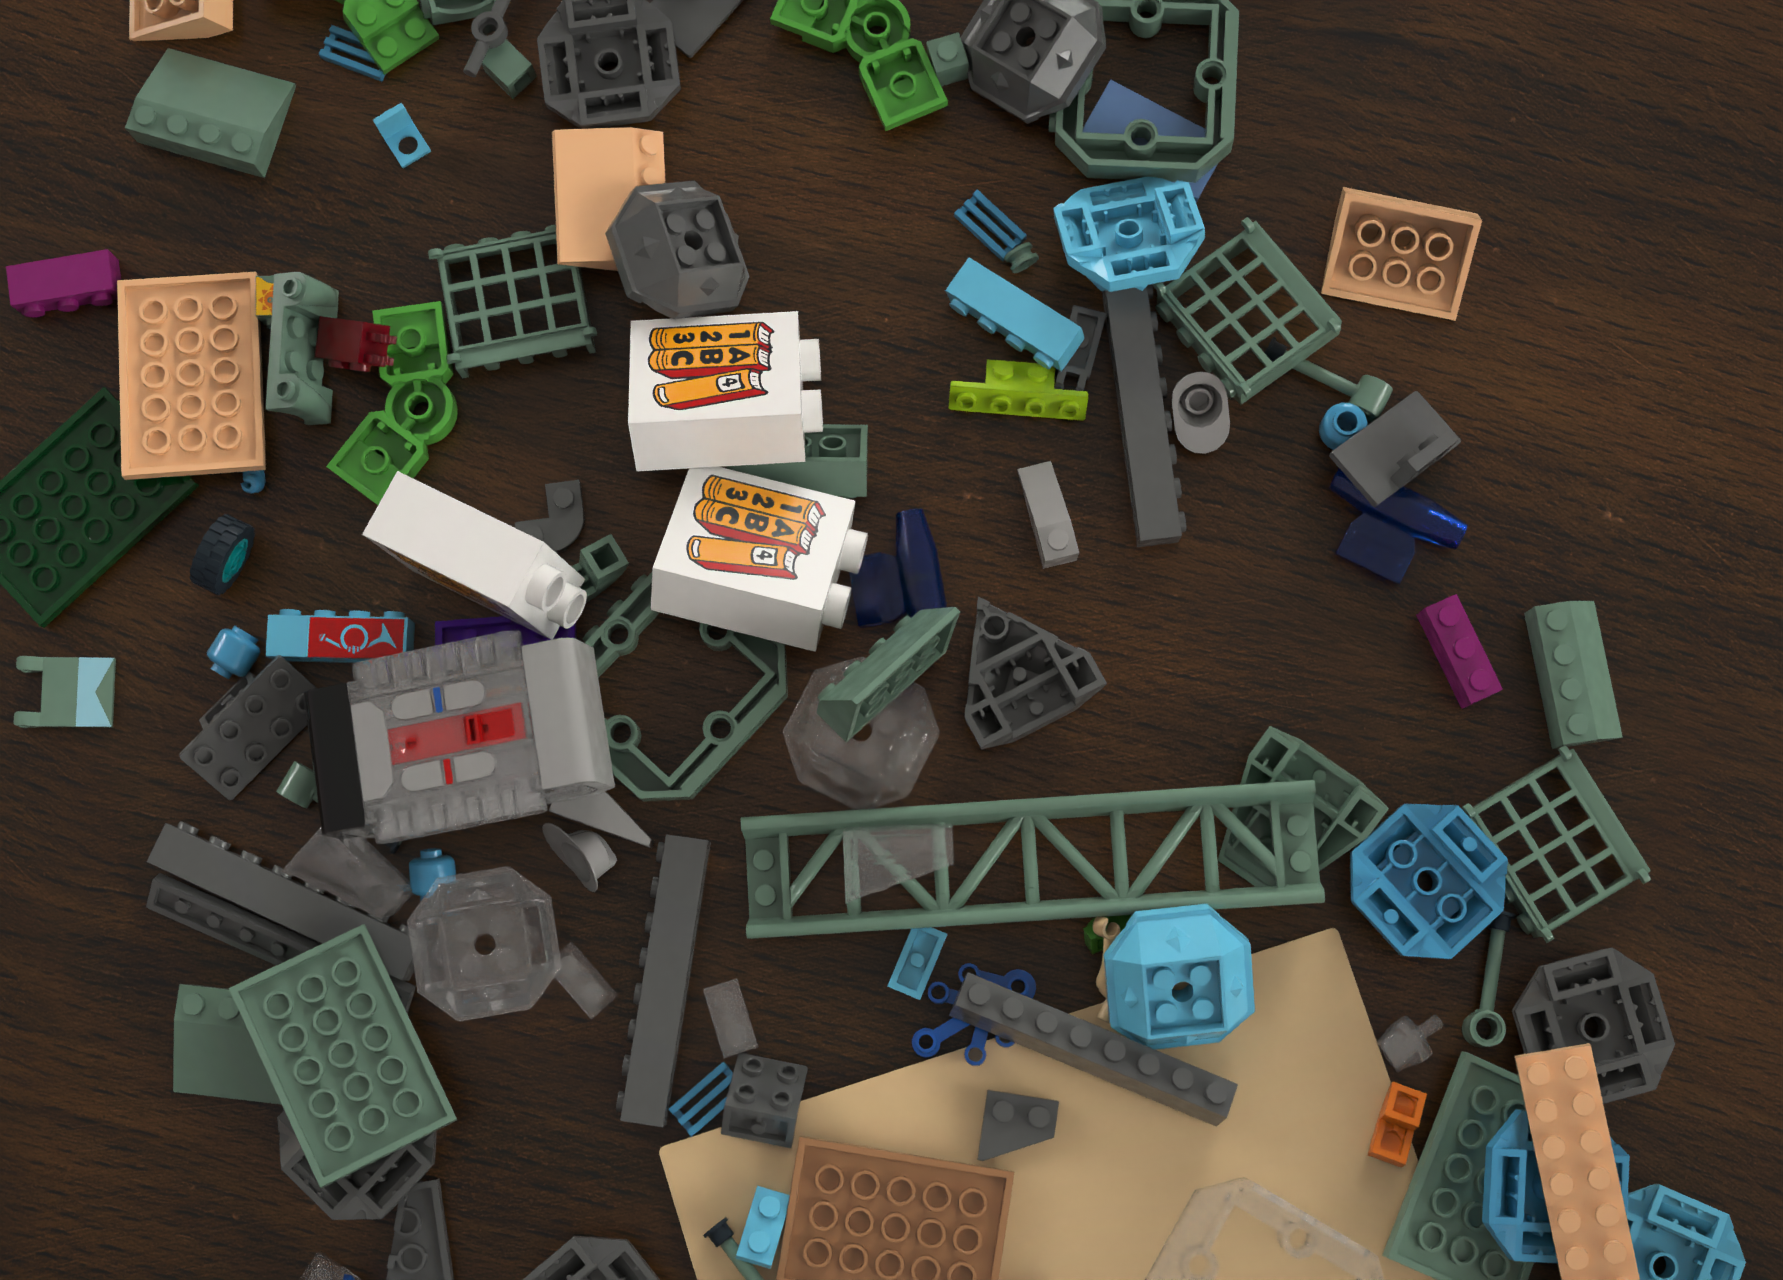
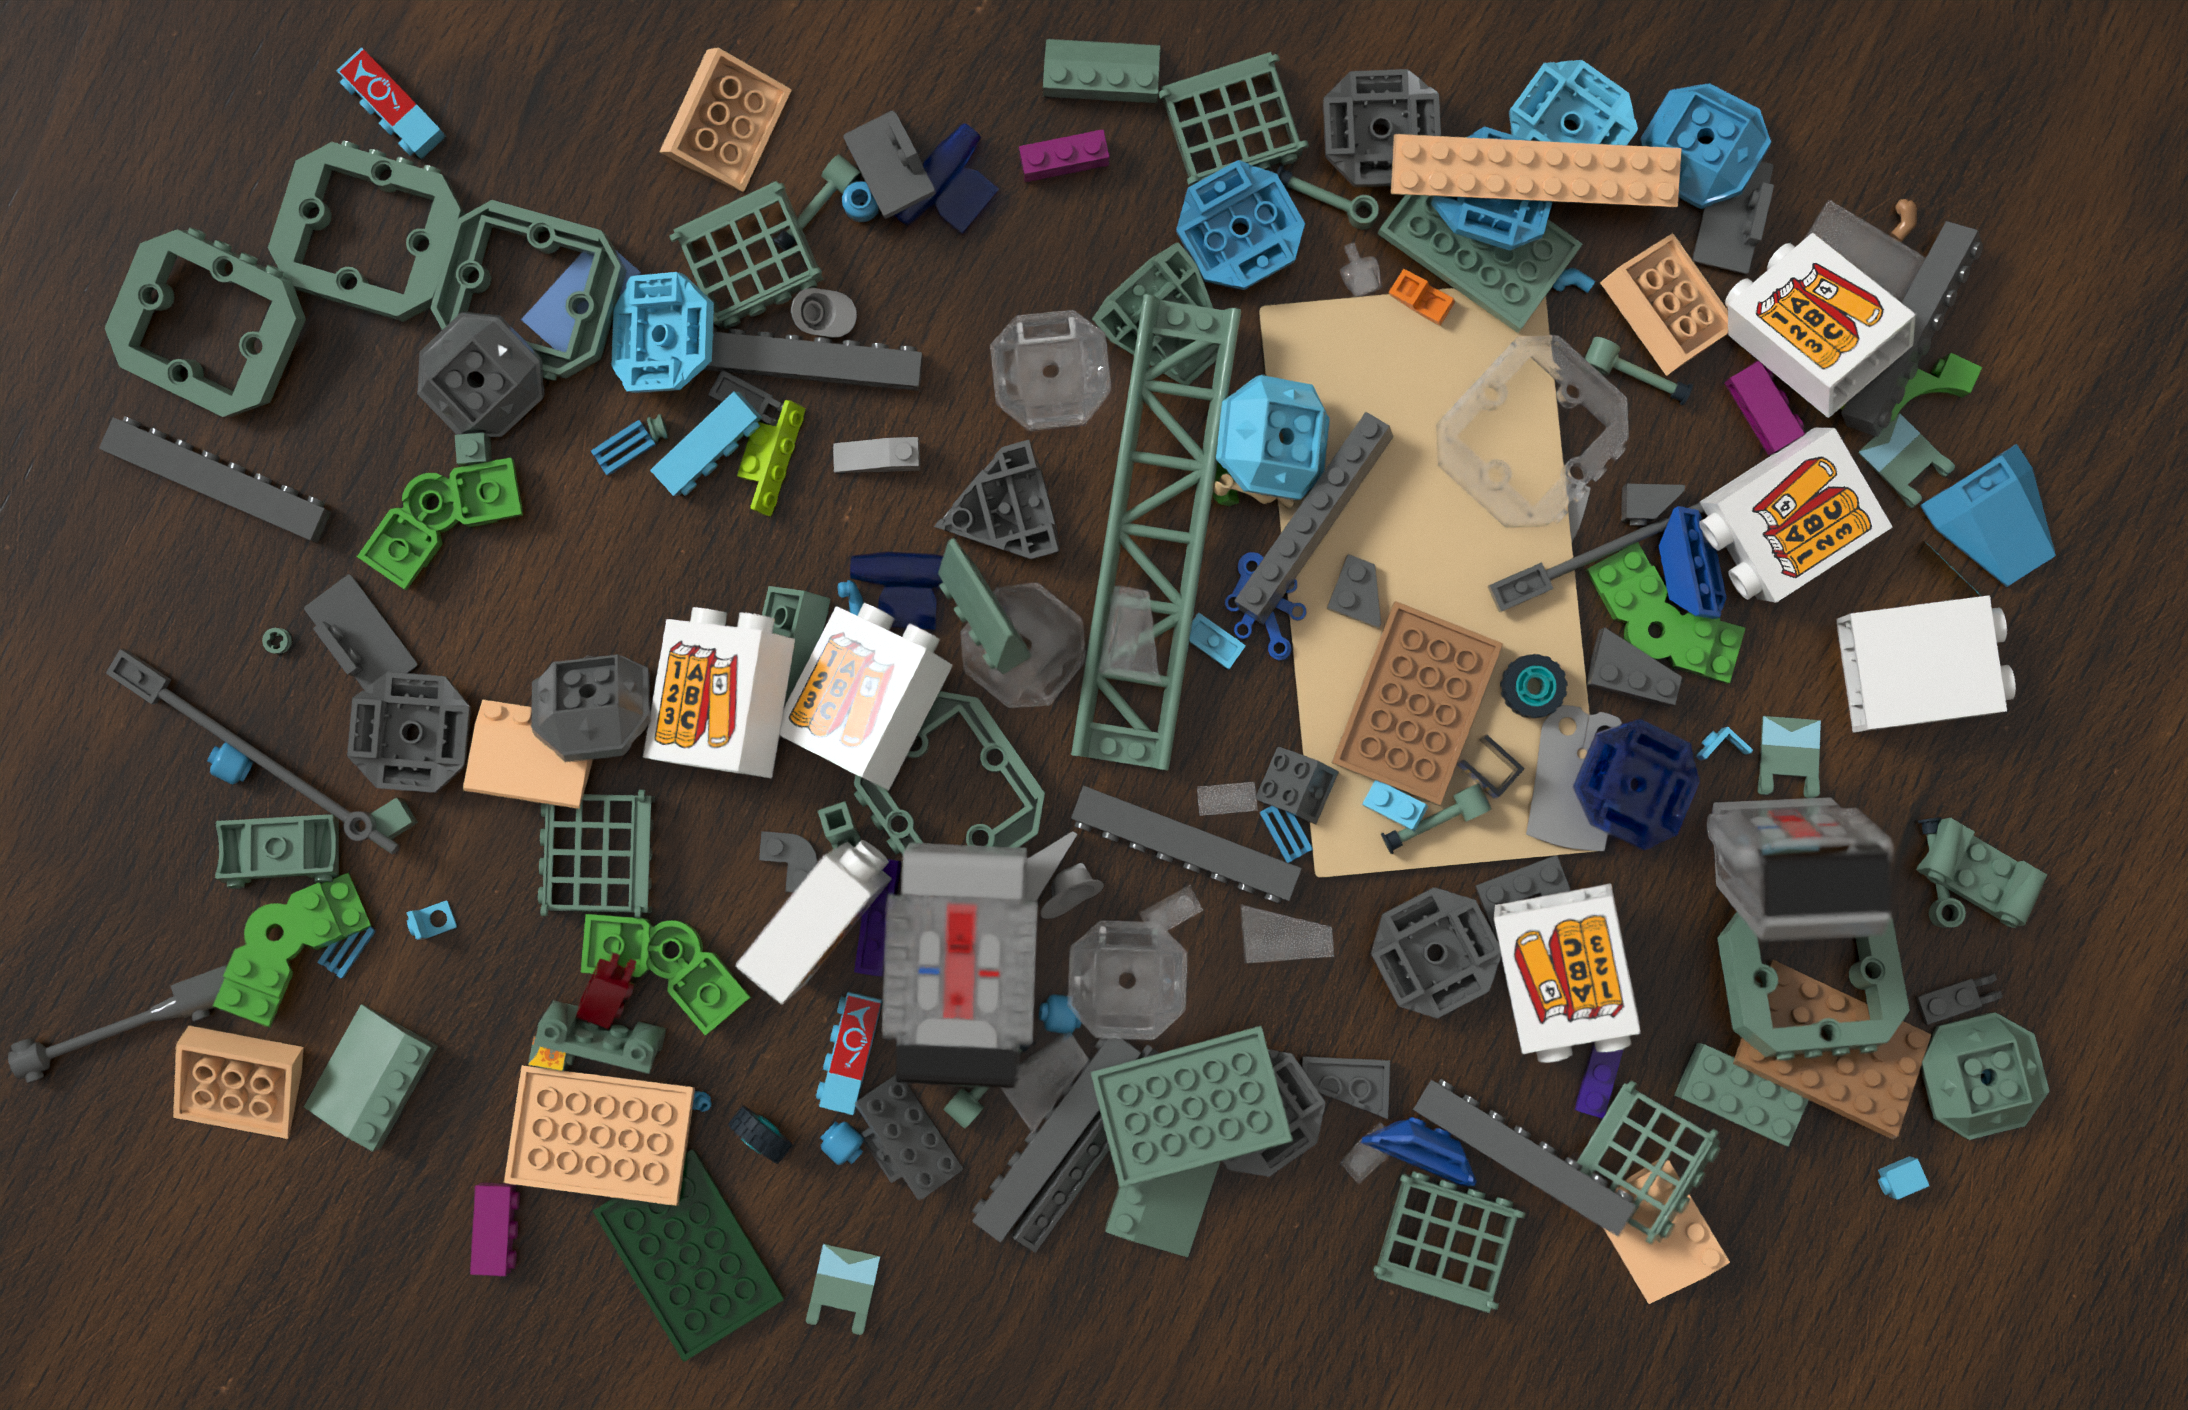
camera: 85 degrees left, 5 degrees up
(575, 1123) = (1281, 937): none -> clear wedge
(876, 525) = (850, 590): none -> dark azure arm
(1202, 653) = (1057, 340): none -> clear piece

